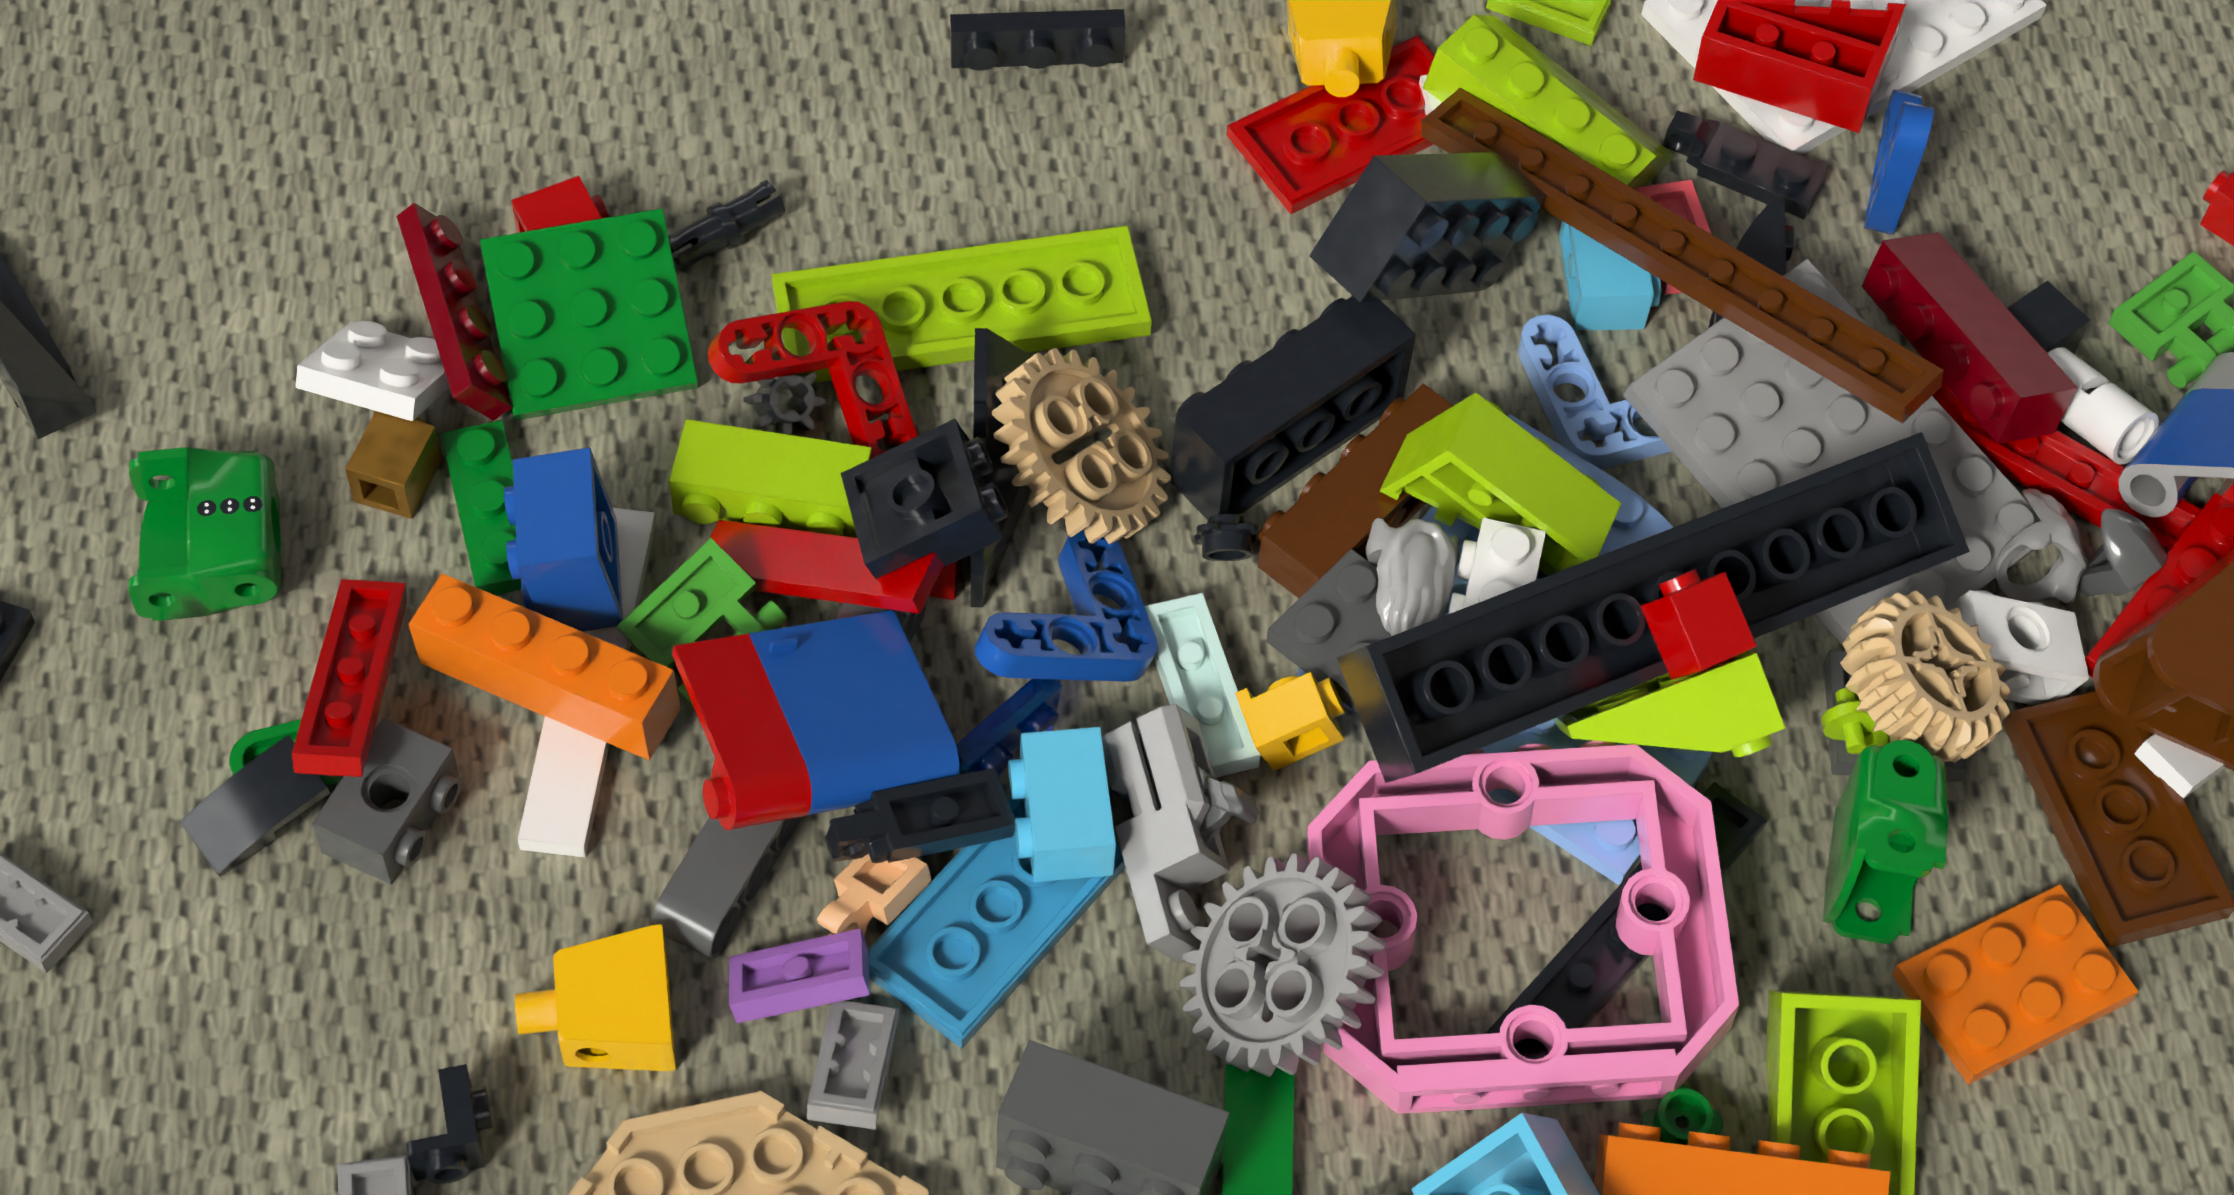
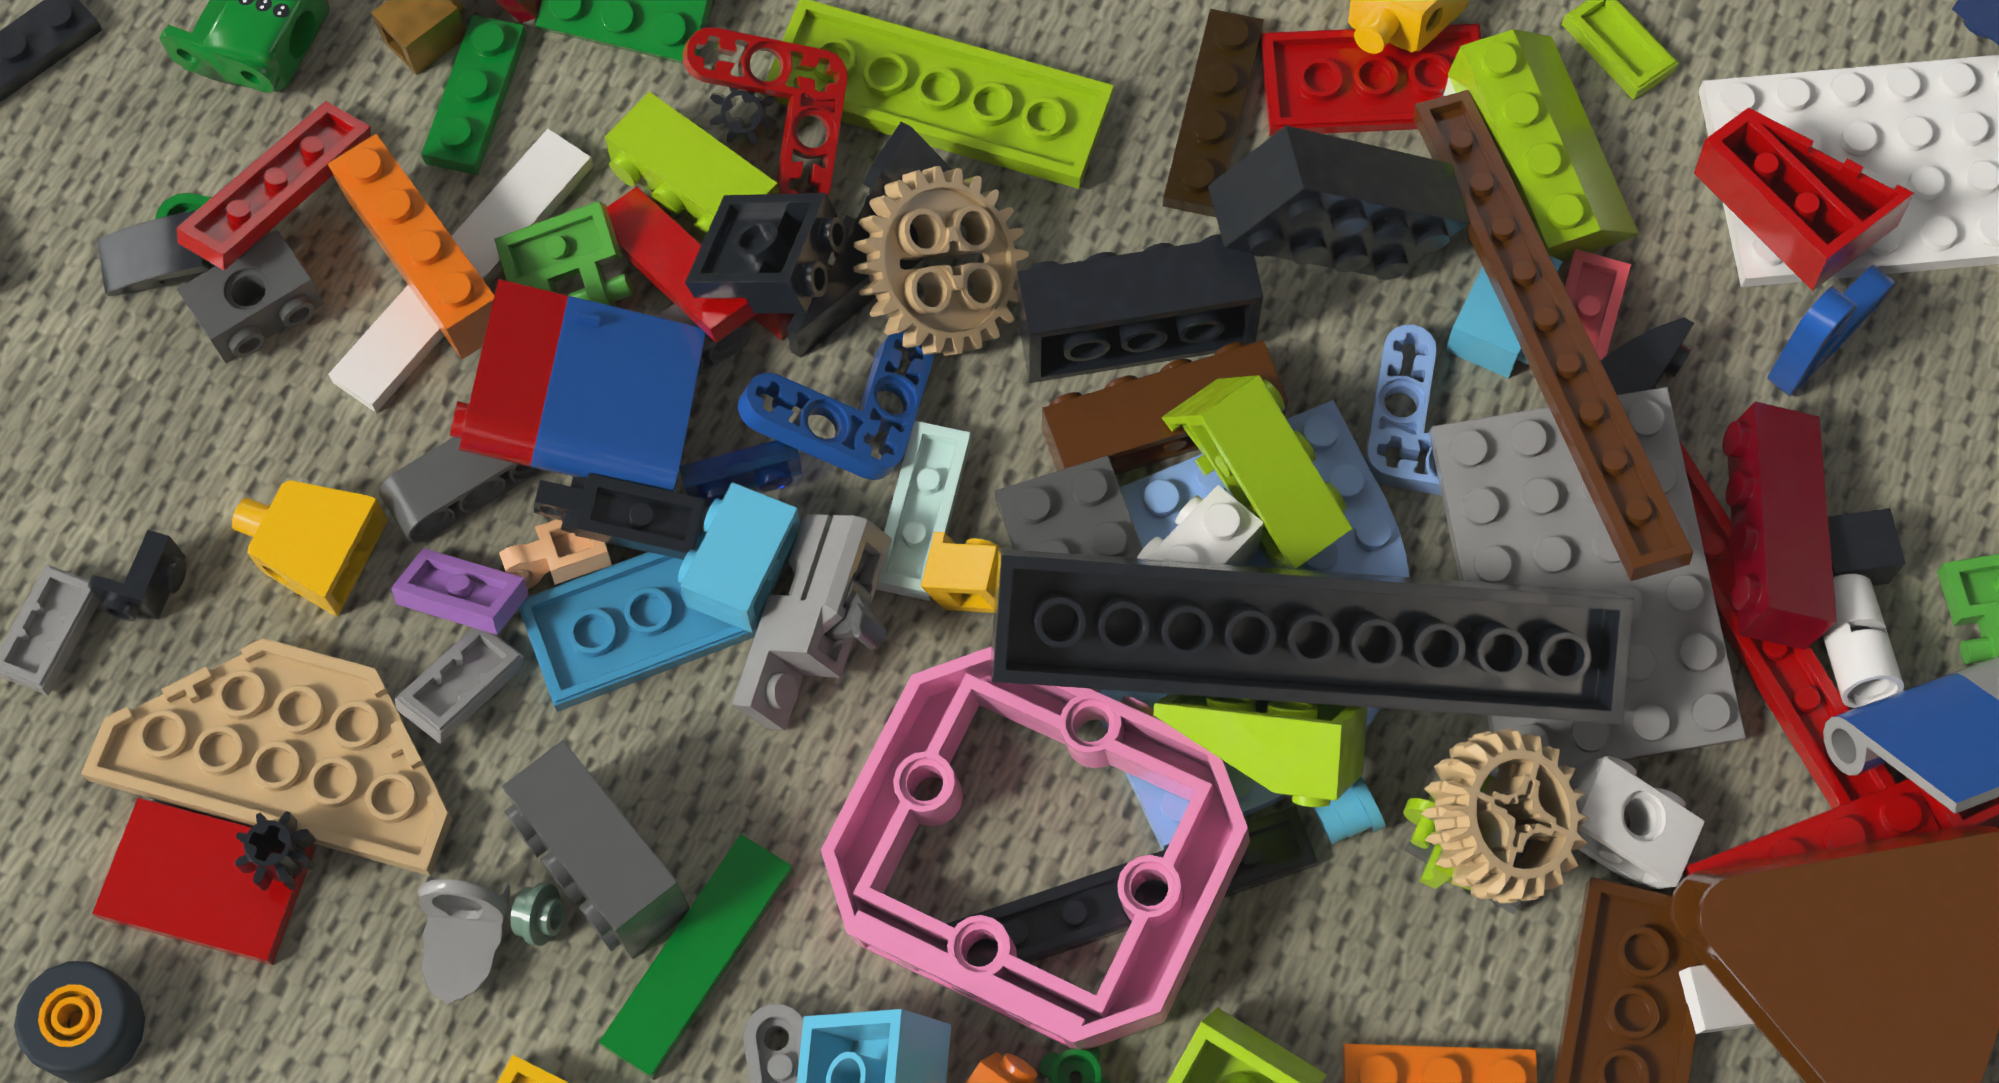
camera: 35 degrees right, 10 degrees up
(565, 540) = (486, 152): blue brick -> none
(1226, 537) = (1023, 394): black plate -> none
(1229, 215) = (1213, 110): none -> dark brown plate
(1282, 965) = (816, 780): light grey gear -> none
(1413, 572) = (1132, 506): light grey piece -> none
(1697, 623) = (1309, 672): red brick -> none
(1746, 162) = (1700, 272): black hinge -> none
(1766, 769) = (1350, 813): none -> medium azure piece
(1884, 838) = (1390, 935): green piece -> none
(2056, 529) = (1739, 738): light grey piece -> none
(2124, 559) = (1789, 792): dark grey plate -> none

